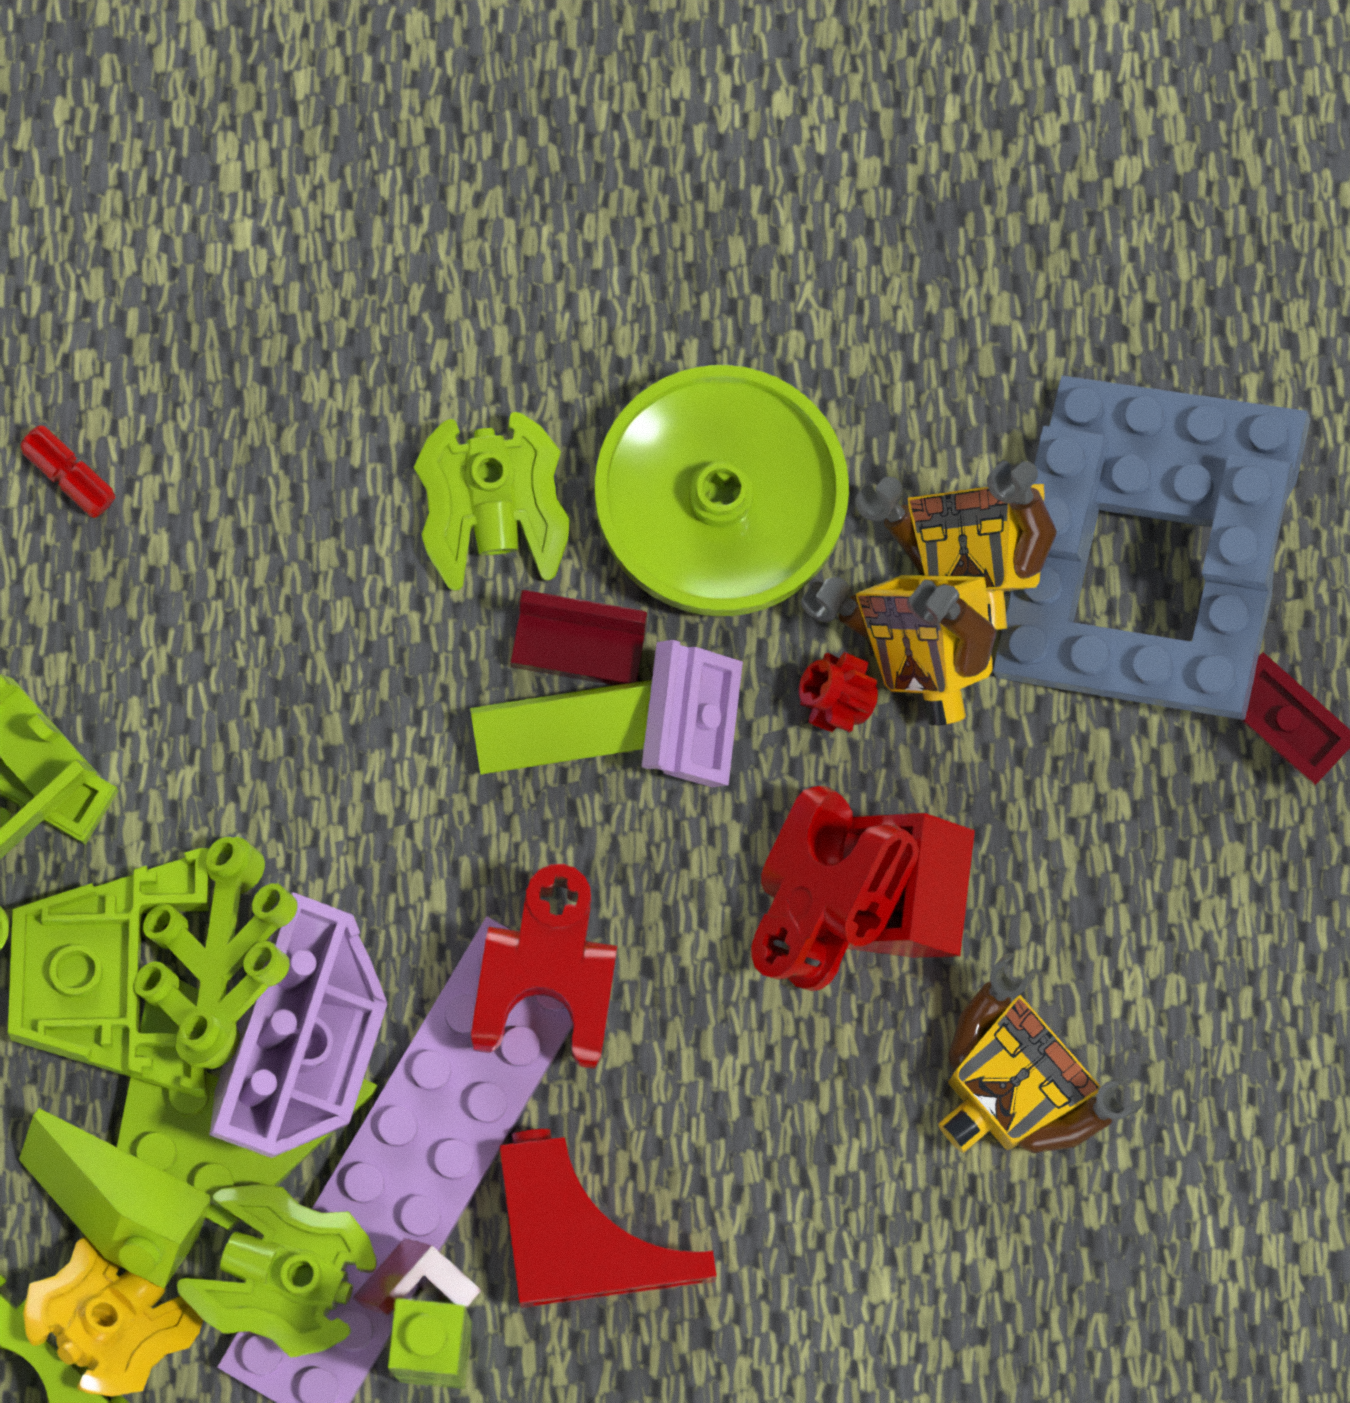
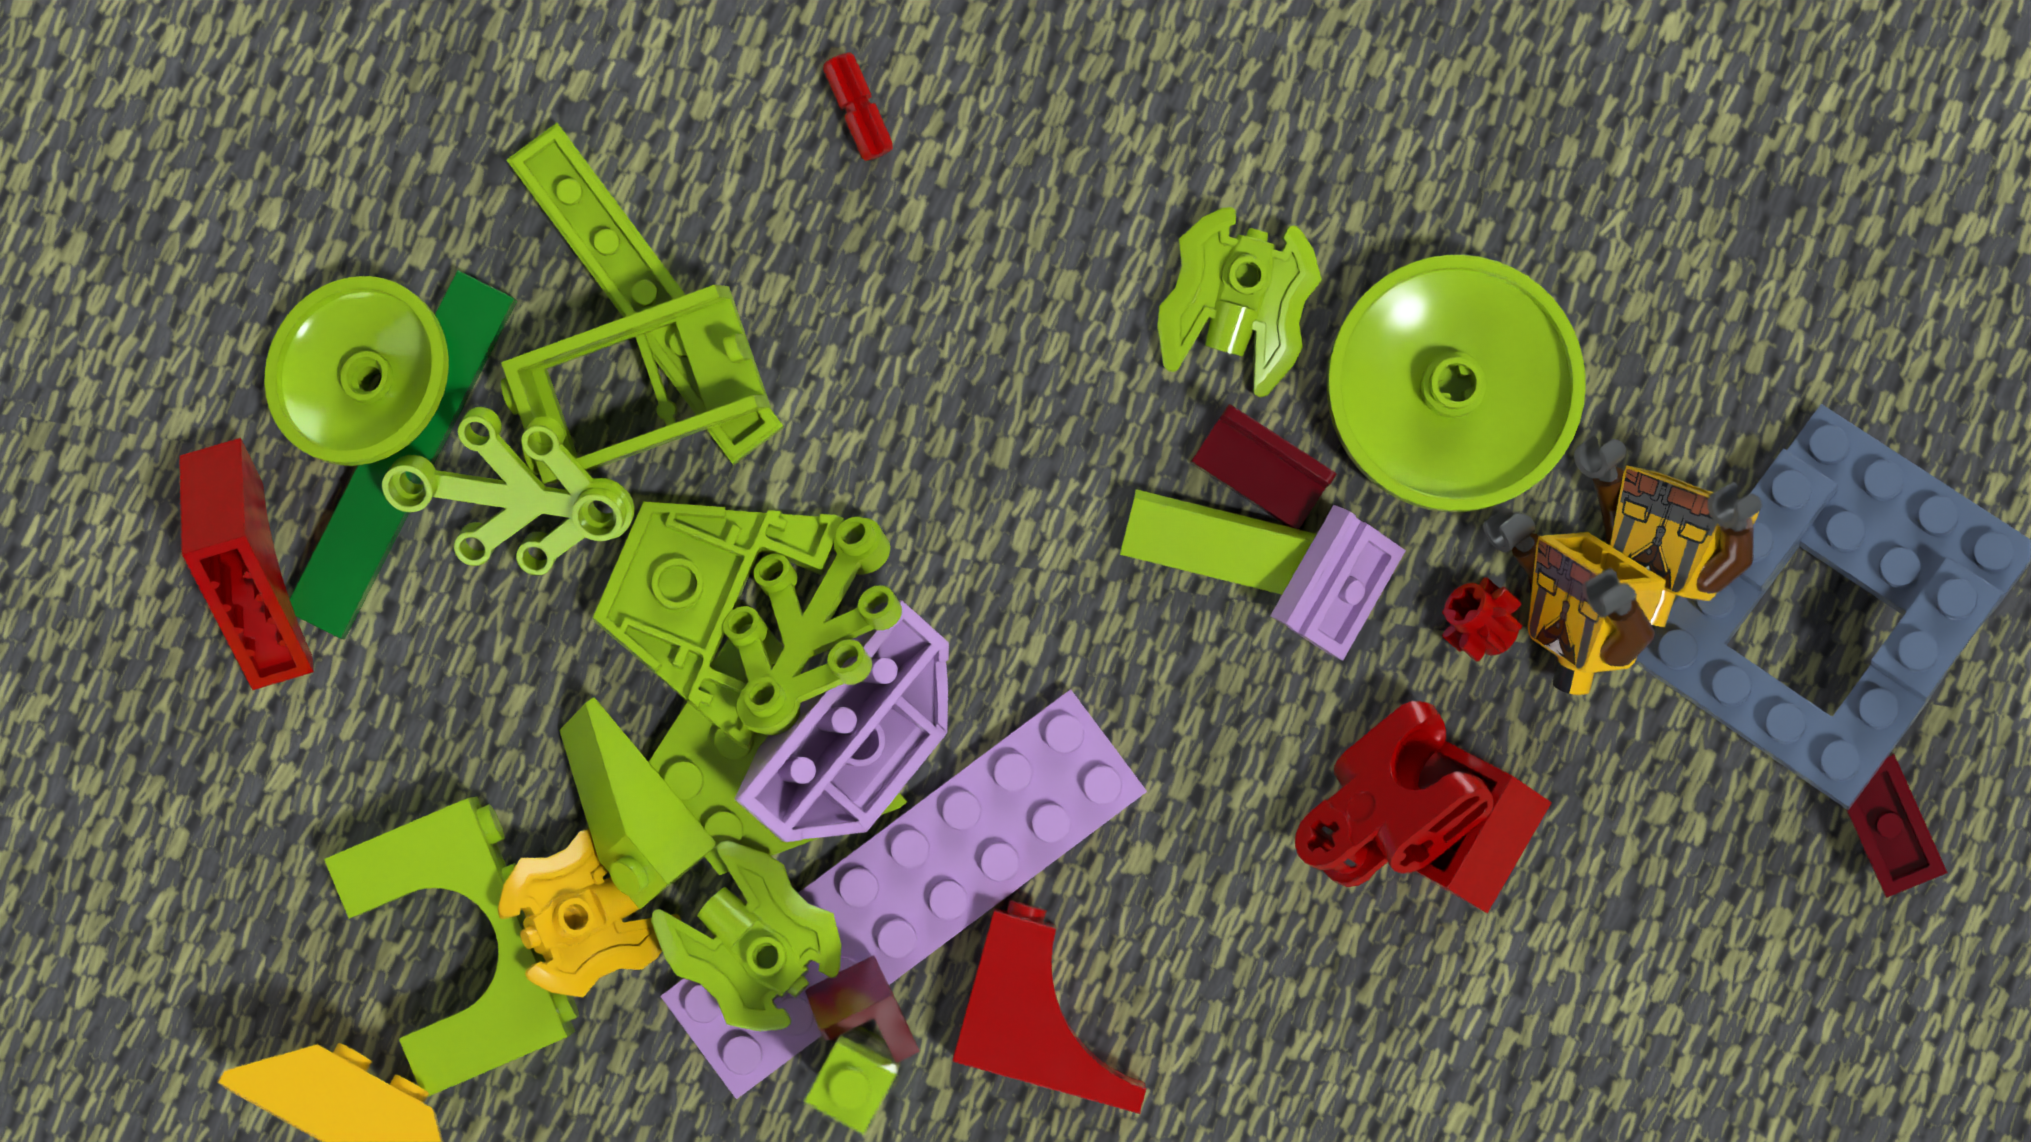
camera: 25 degrees right, 10 degrees up
(550, 961) = (1111, 760): red piece -> none
(1021, 1077) = (1495, 1047): torso -> none

